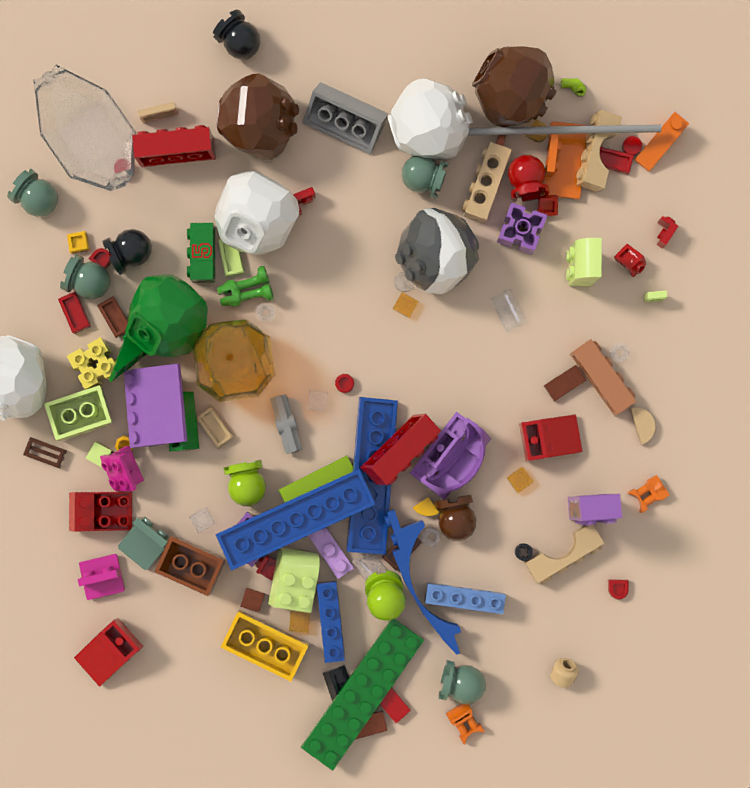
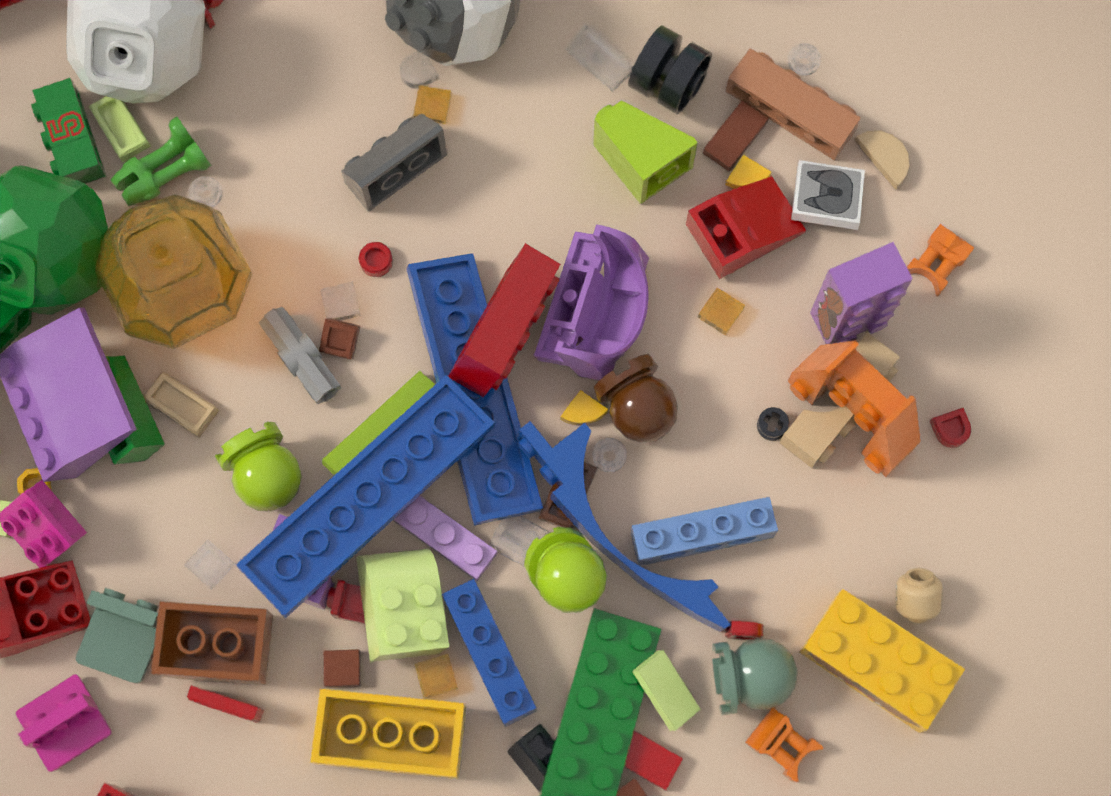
camera: 20 degrees left, 10 degrees down
(187, 598) = (224, 704): none -> red tile
(310, 422) = (339, 338): none -> copper tile
(373, 332) = (395, 160): none -> dark grey slope
(414, 674) = (666, 690): none -> yellowish green tile
(467, 657) = (744, 630): none -> red tile
(509, 376) = (642, 149): none -> lime slope
(531, 699) = (882, 661): none -> yellow brick
(539, 332) = (679, 74): none -> black wheel
(563, 407) = (746, 172): none -> yellow tile
(566, 542) = (867, 395): none -> orange wedge
(602, 436) = (828, 195): none -> tile

